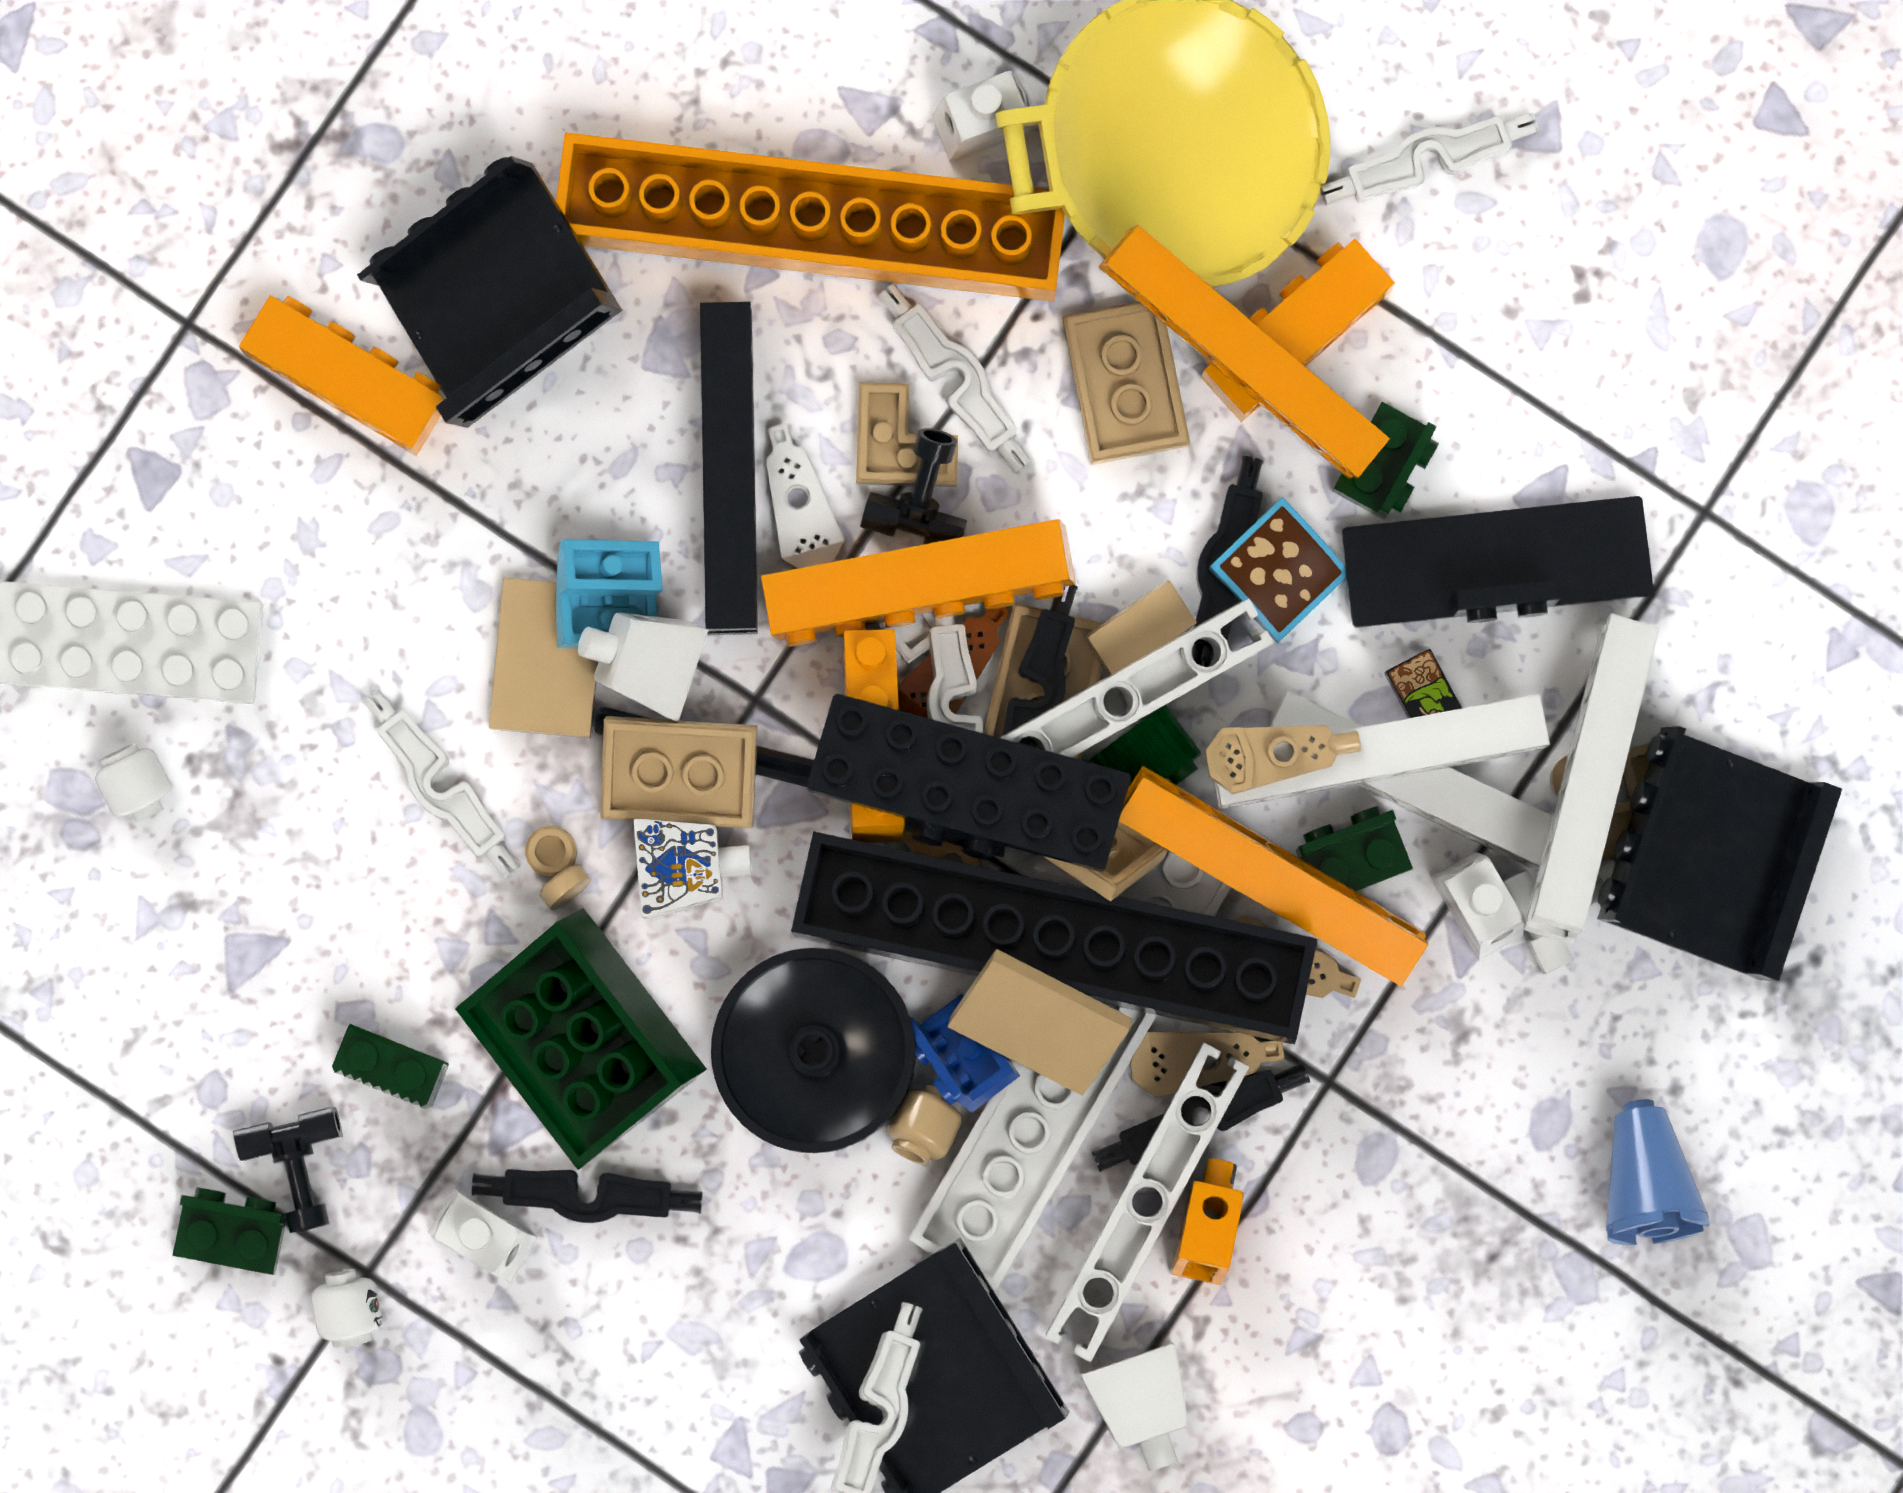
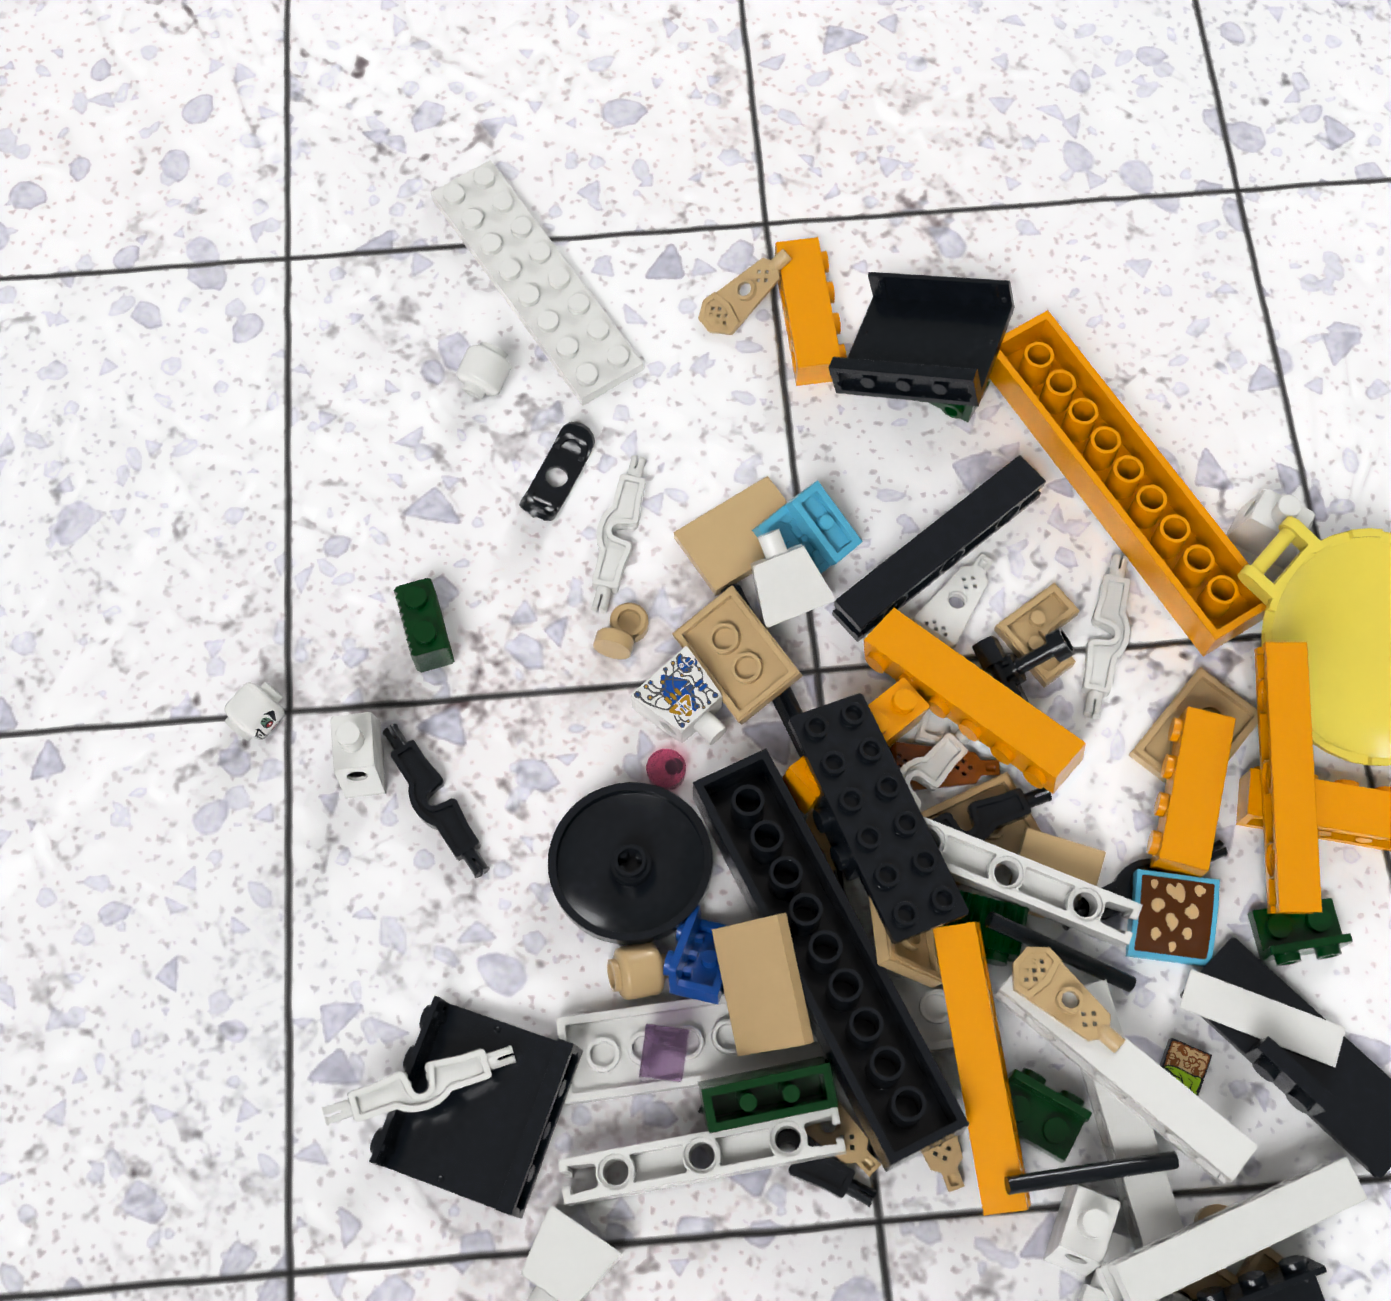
camera: 55 degrees right, 15 degrees down
(229, 1233) = (253, 613): dark green bracket -> none
(266, 446) = (737, 306): none -> tan piece
(290, 1145) = (333, 608): black bar -> none
(304, 765) = (567, 453): none -> black piece
(580, 1038) = (529, 721): dark green slope -> none
(739, 938) = (666, 769): none -> clear pink tile
(1029, 1164) = (663, 1053): none -> clear purple panel
(1140, 1097) = (767, 1094): none -> dark green brick
(1181, 448) = (1192, 792): none -> light orange brick
(1207, 1243) = (705, 1220): light orange torso -> none
(1227, 709) = (1065, 953): none -> black bar
(1434, 570) = (1262, 1017): none -> white sticker
(1443, 859) = (1091, 1172): none -> black bar

